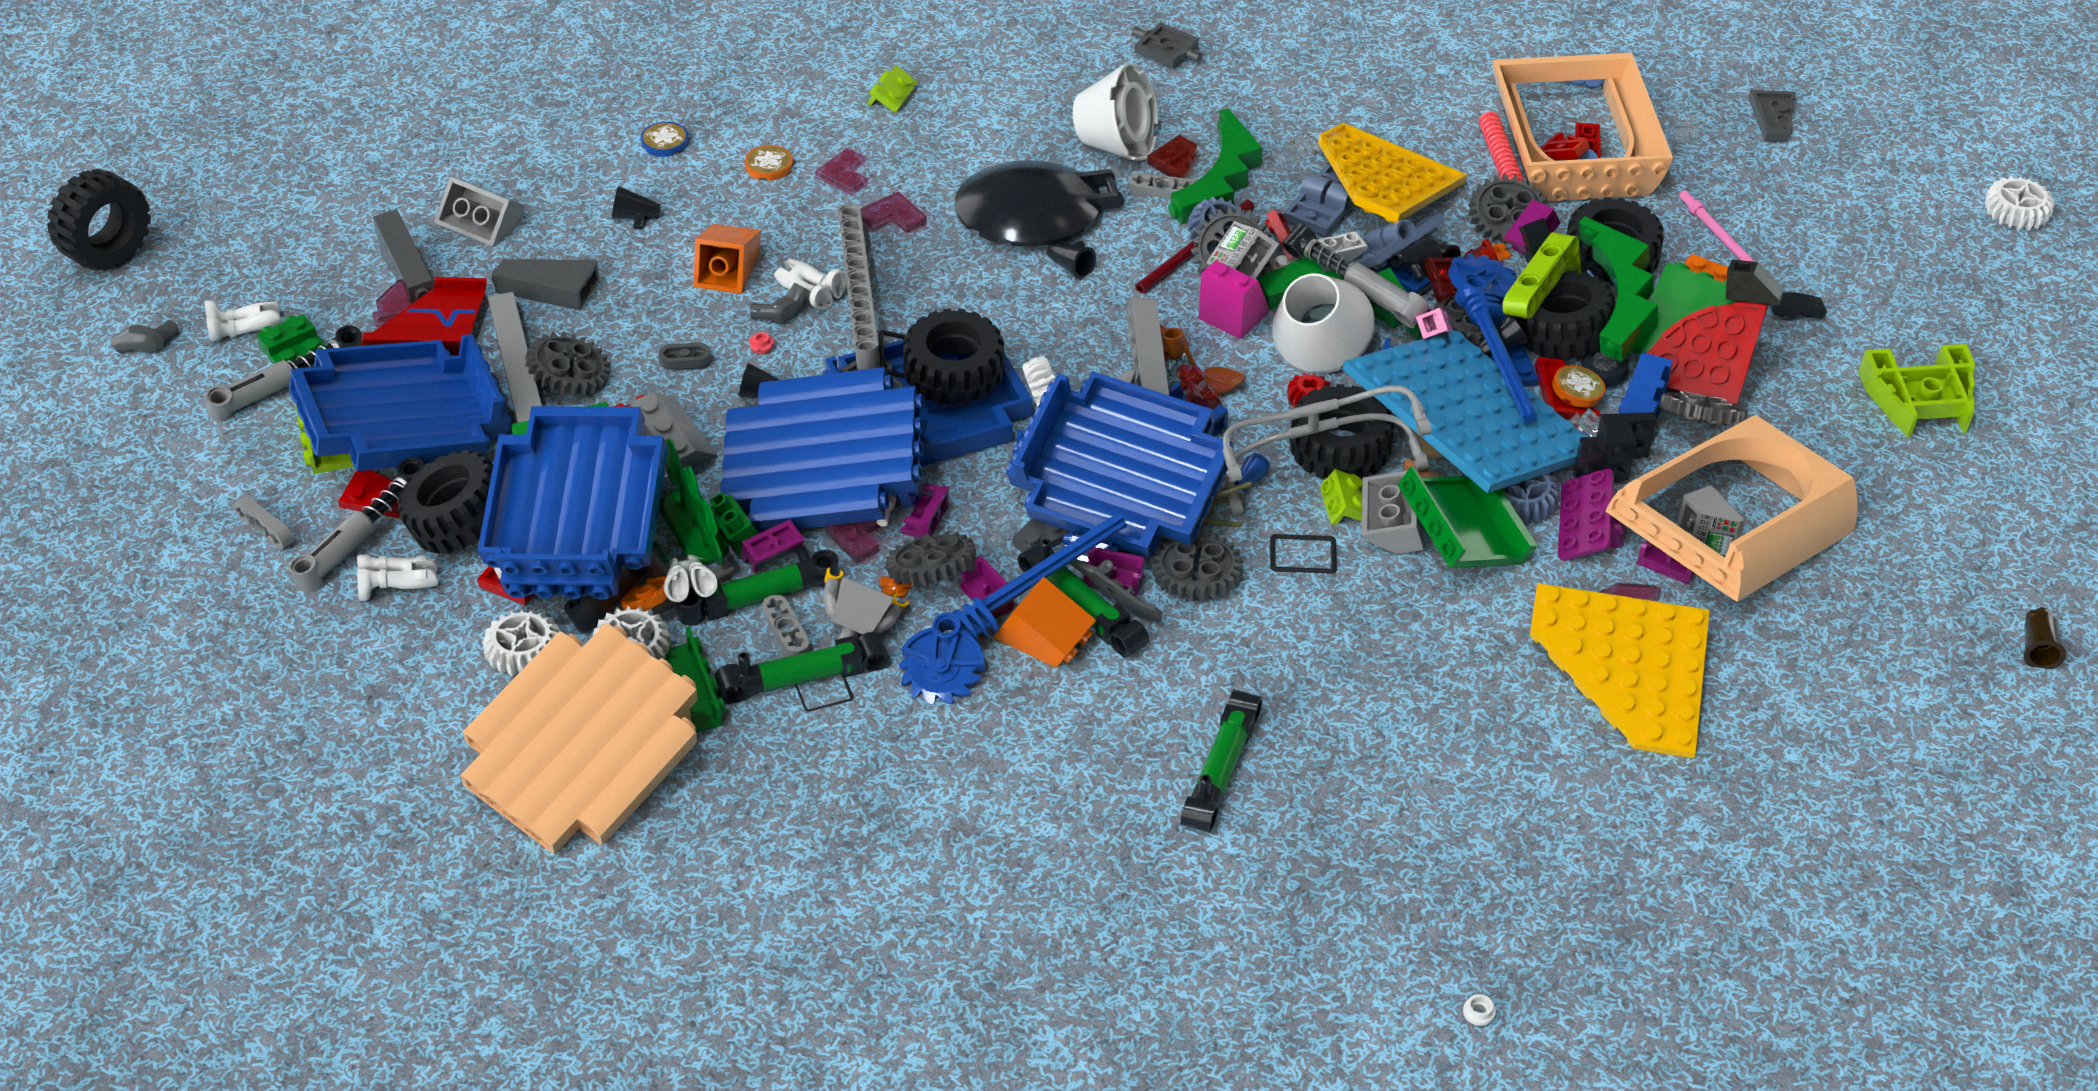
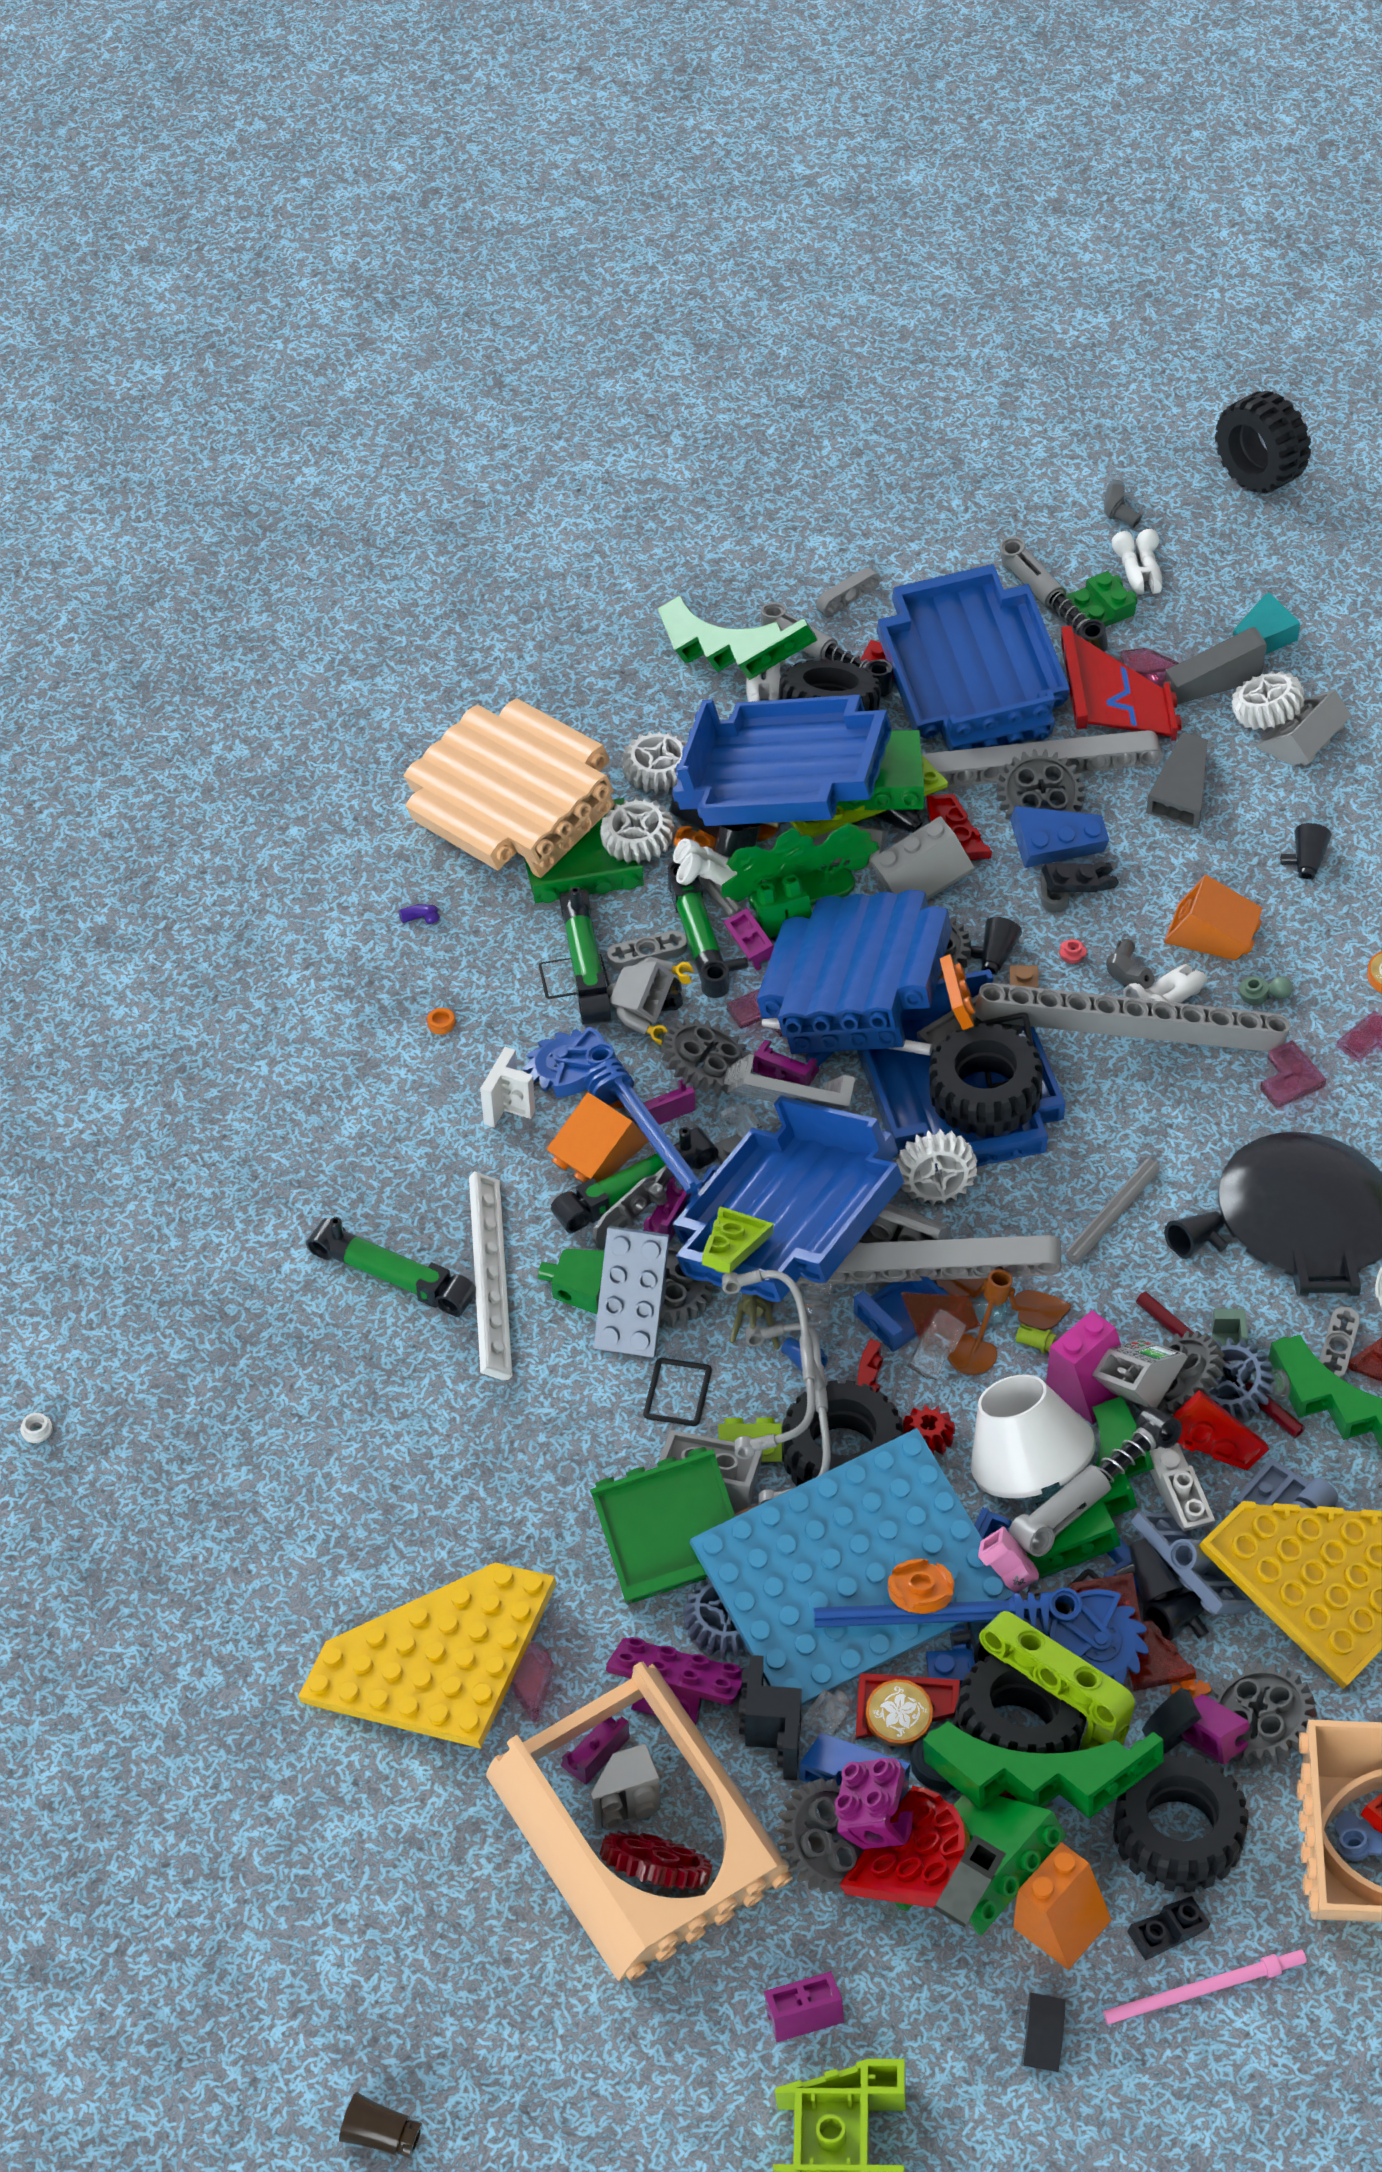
camera: 100 degrees right, 5 degrees up
(333, 630) = (751, 648): none -> arch
(341, 237) = (1273, 623): none -> teal slope
(443, 222) = (1268, 700): none -> white gear
(630, 350) = (1056, 835): none -> blue wedge
(677, 335) = (1079, 877): none -> black hinge
(745, 810) = (417, 911): none -> dark purple arm
(796, 235) = (1256, 990): none -> sand green plate
(796, 369) = (1024, 975): none -> medium nougat plate
(880, 355) = (958, 992): none -> orange wing
(896, 774) = (441, 1021): none -> orange tile
(993, 465) = (835, 1093): none -> light grey panel
(997, 693) = (507, 1090): none -> white bracket
(1054, 307) = (1112, 1211): none -> light grey axle
(1167, 236) = (1229, 1324): none -> sand green panel
(1183, 479) = (734, 1239): none -> lime wing
(1199, 336) = (1035, 1337): none -> lime pin
(1204, 621) = (575, 1278): none -> green torso
(1211, 687) = (490, 1277): none -> white tile
(1219, 385) = (936, 1344): none -> clear slope
(1233, 562) = (631, 1291): none -> plate
(1256, 432) = (870, 1365): none -> red slope
(1485, 357) = (920, 1586): none -> orange tile
(1681, 247) = (1169, 1928): none -> black slope
(1681, 366) = (868, 1801): none -> magenta piece
(1770, 490) = (655, 1860): none -> dark red gear
(1836, 417) = (804, 2006): none -> magenta hinge

